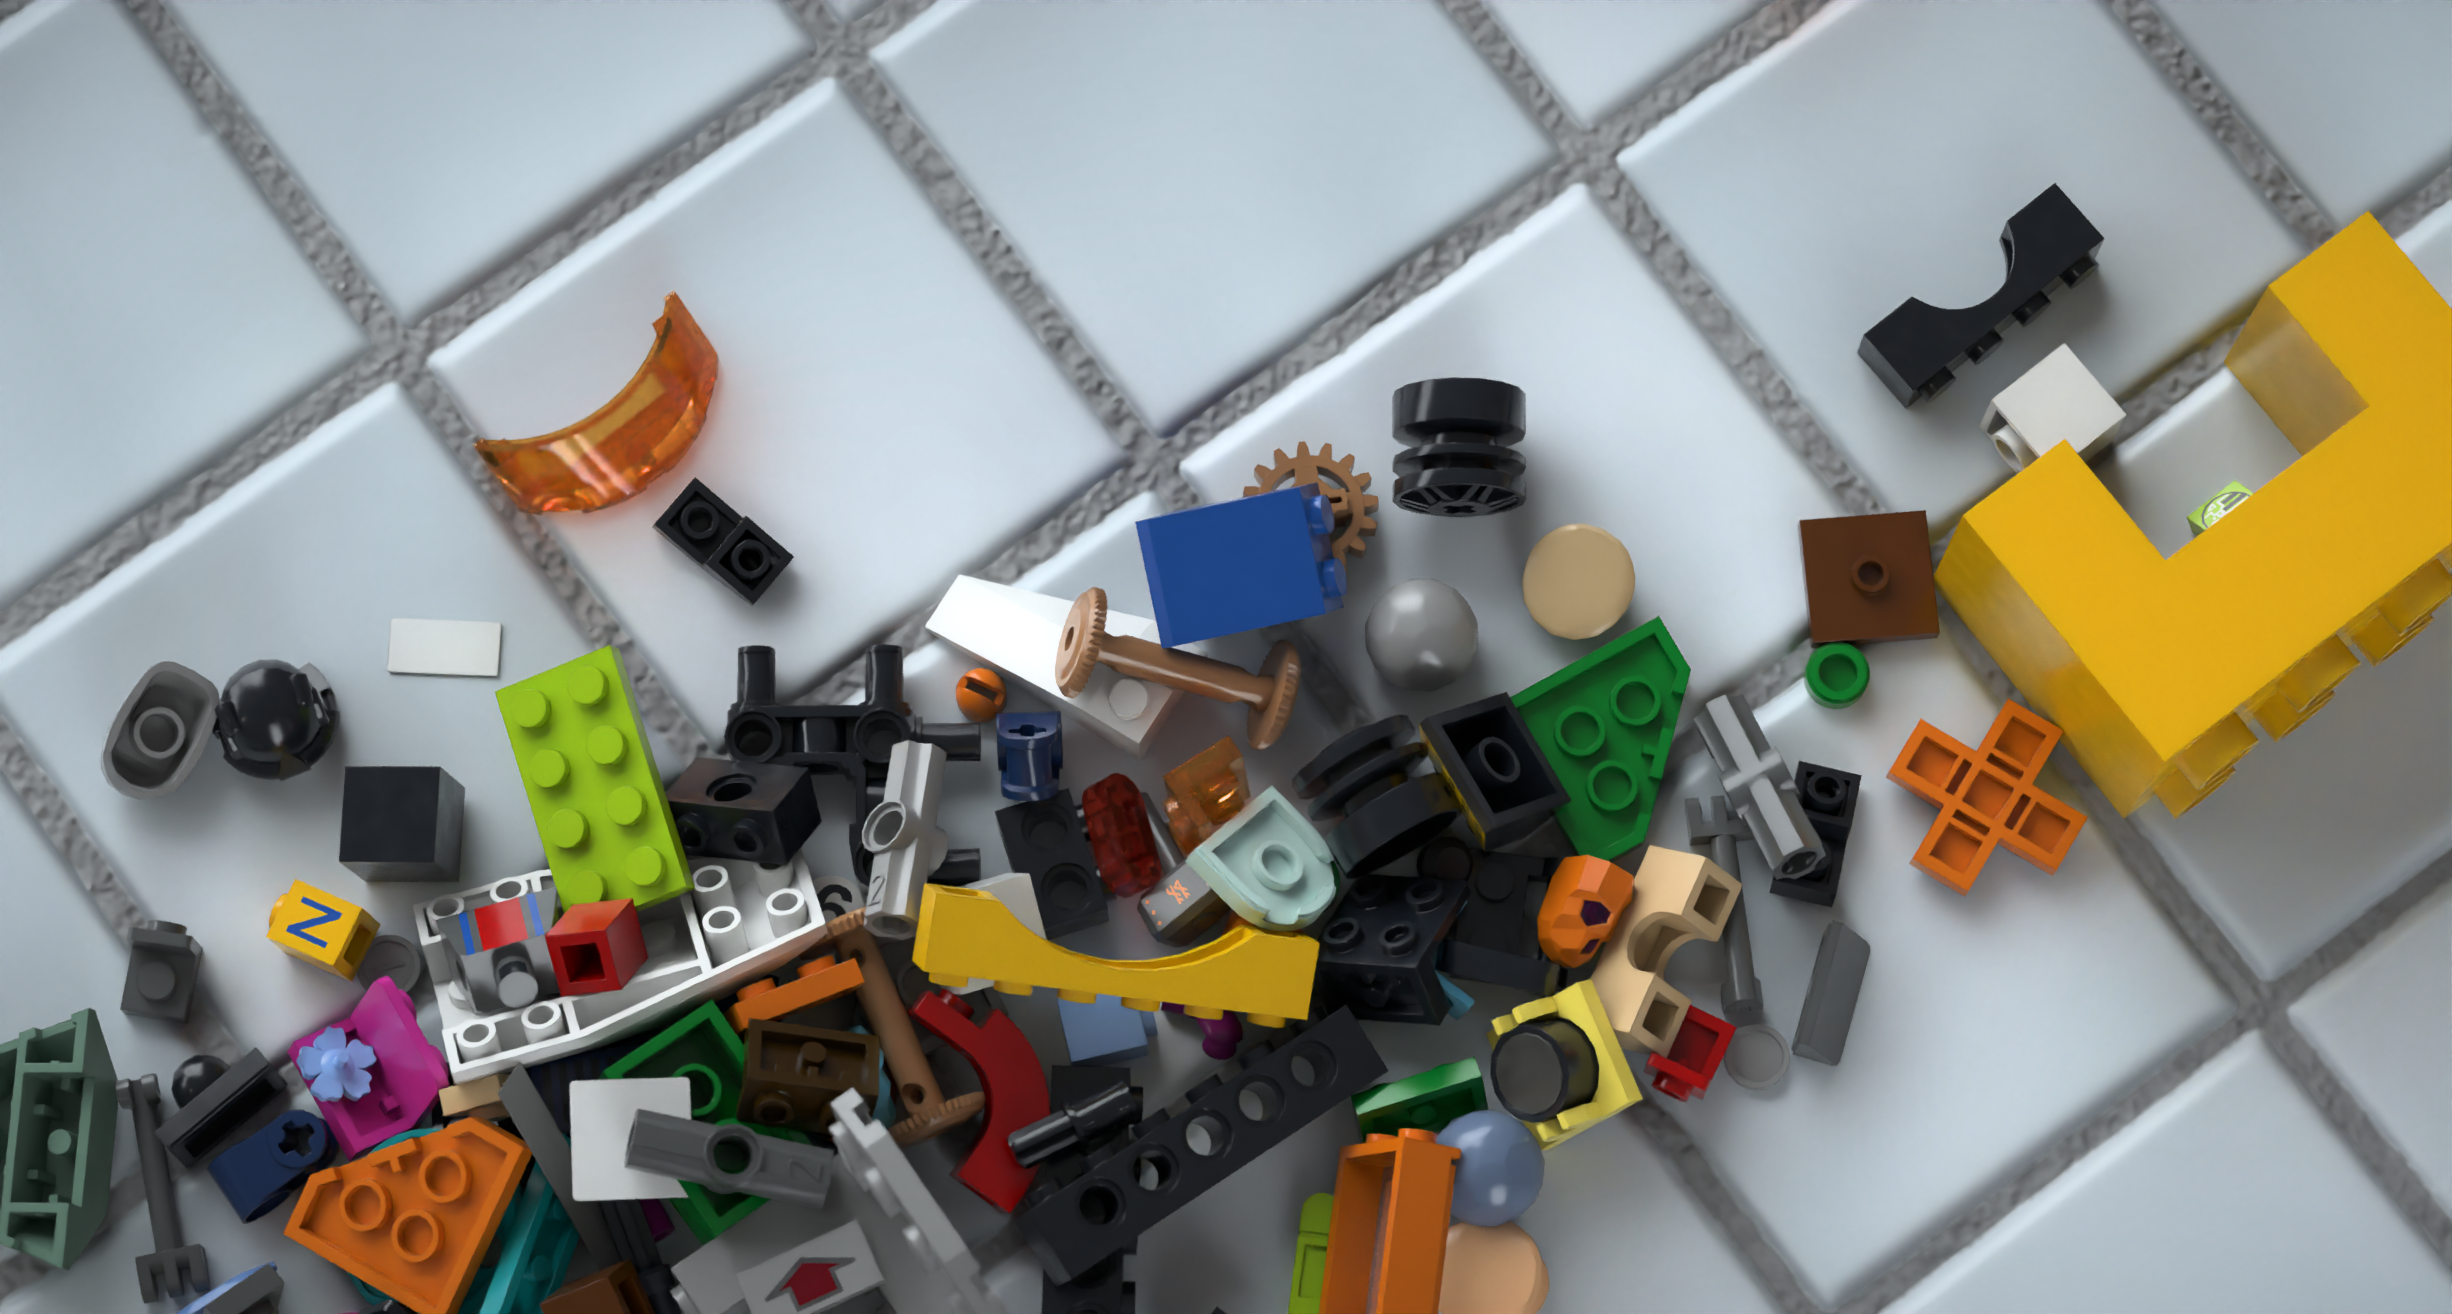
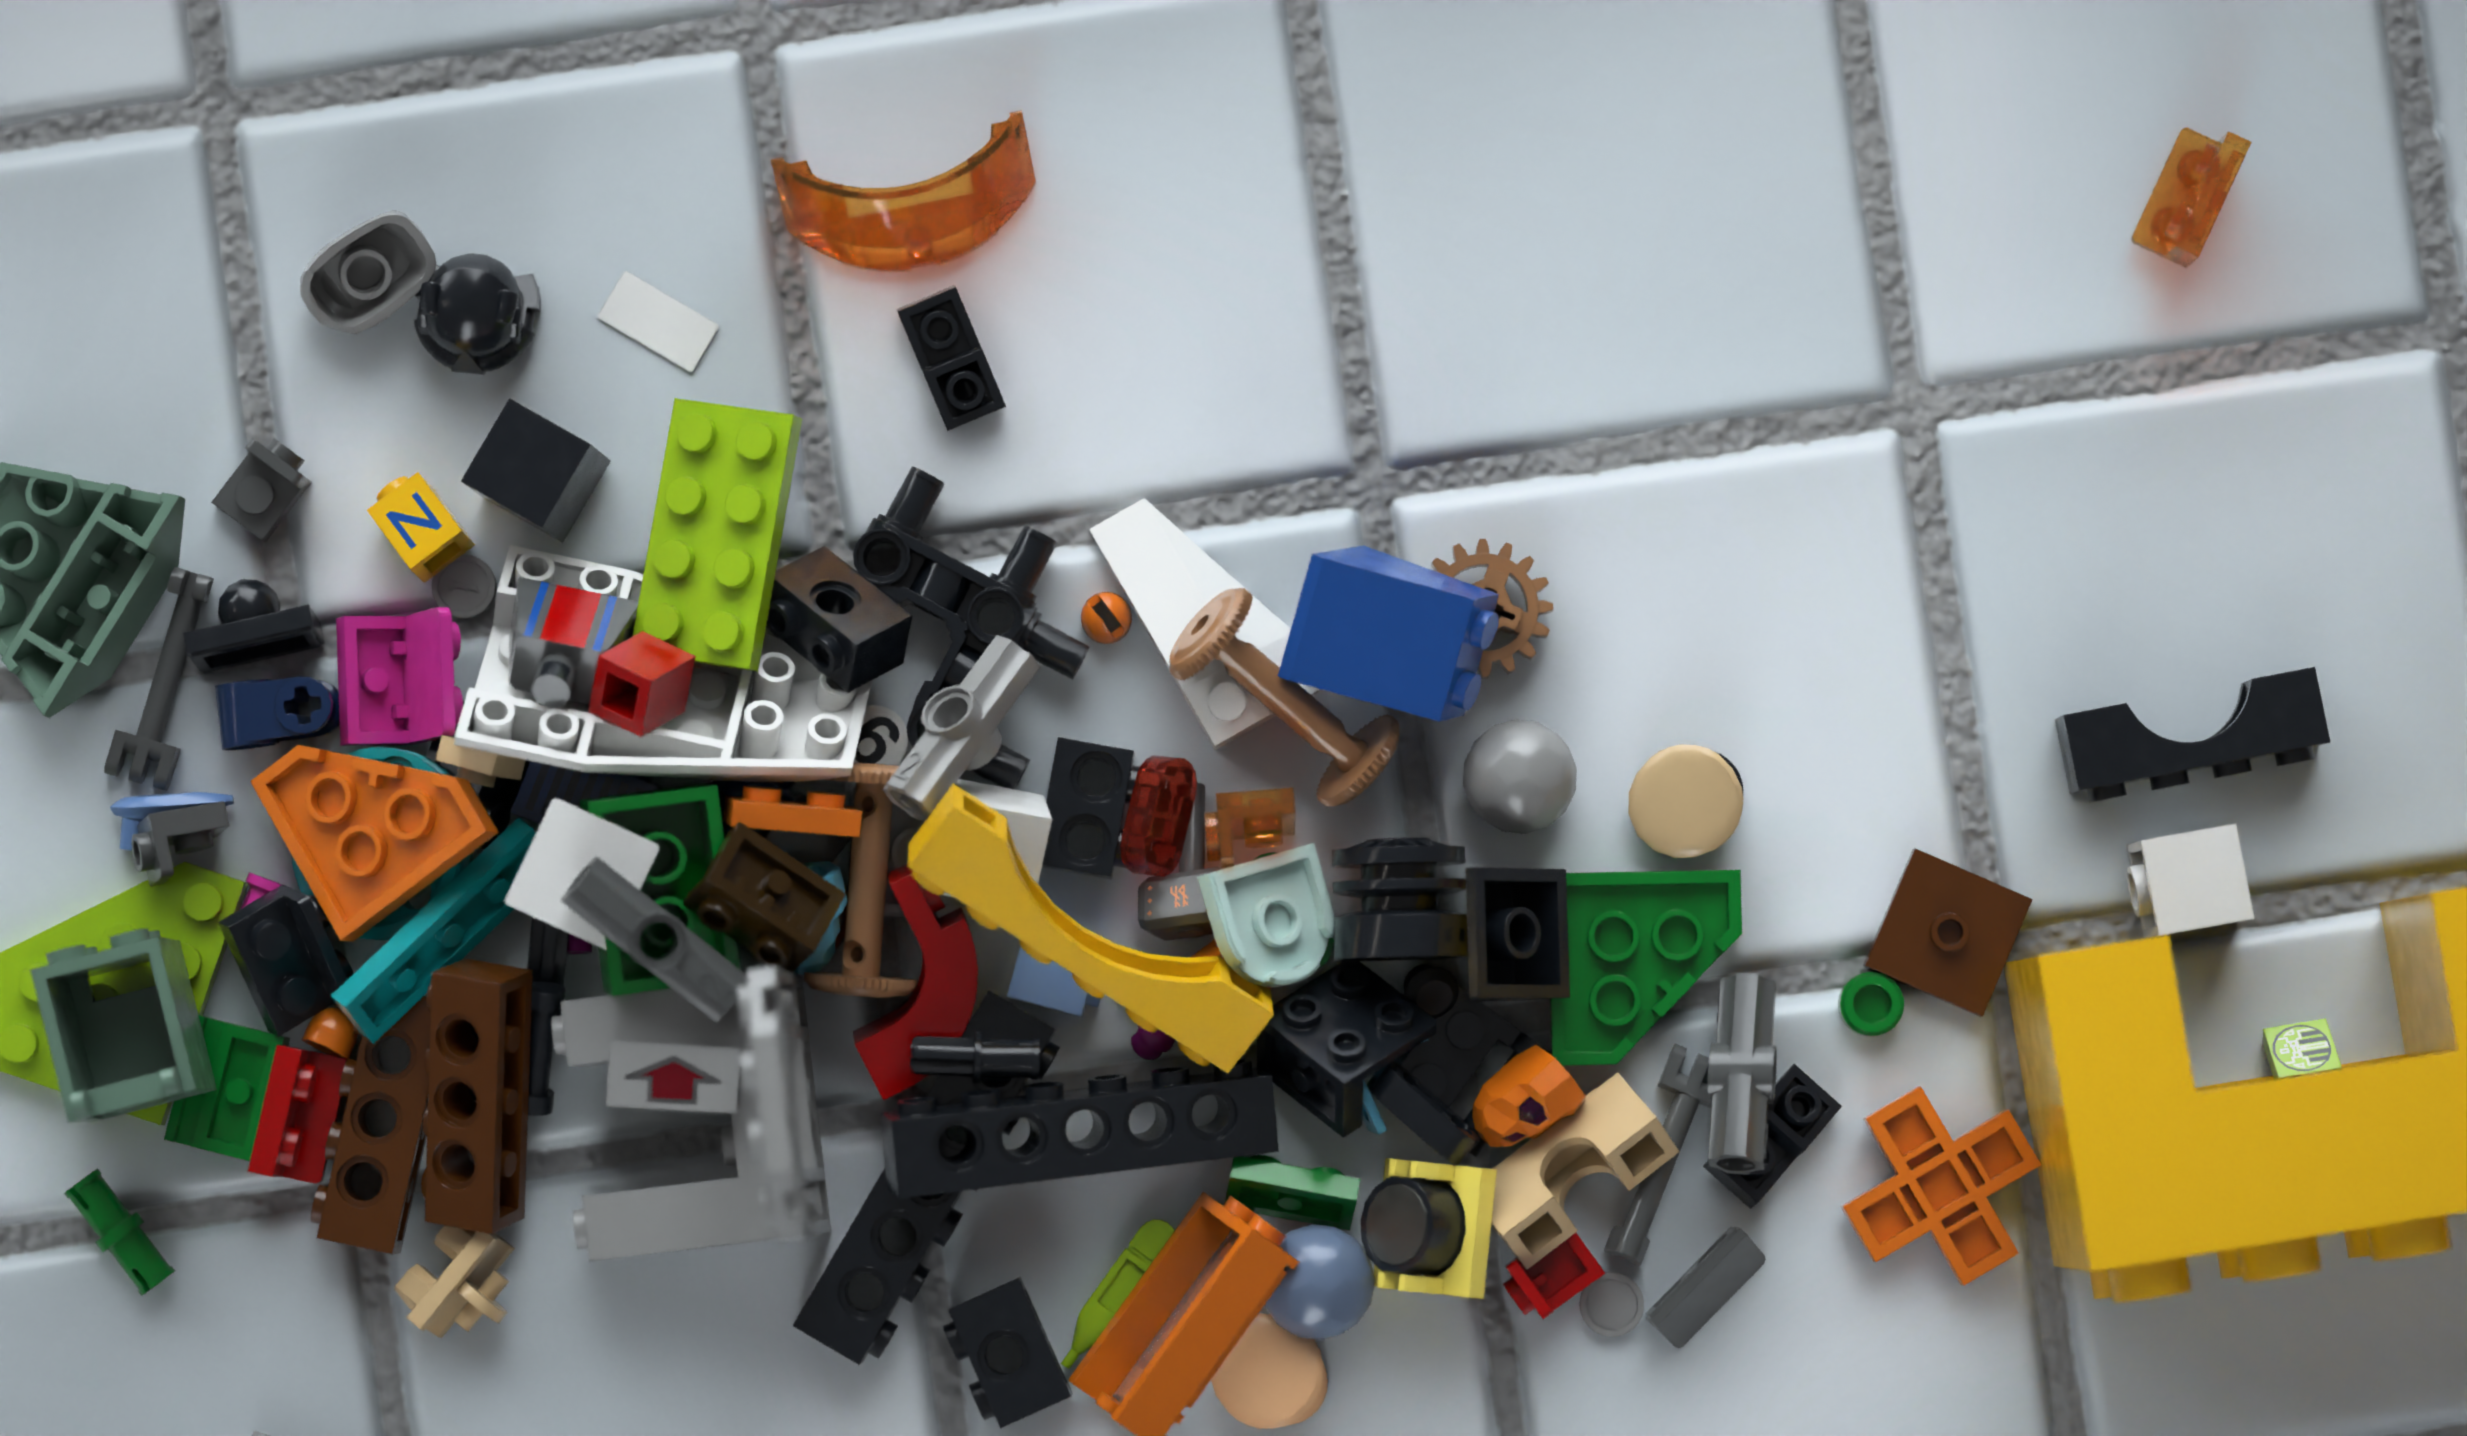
camera: 25 degrees right, 10 degrees up
(336, 1067) = (370, 657): light blue plant -> none
(556, 1163) = (510, 845): light grey sticker -> none
(1029, 754) = (1116, 701): dark blue piece -> none
(1459, 447) = (1644, 626): black wheel -> none

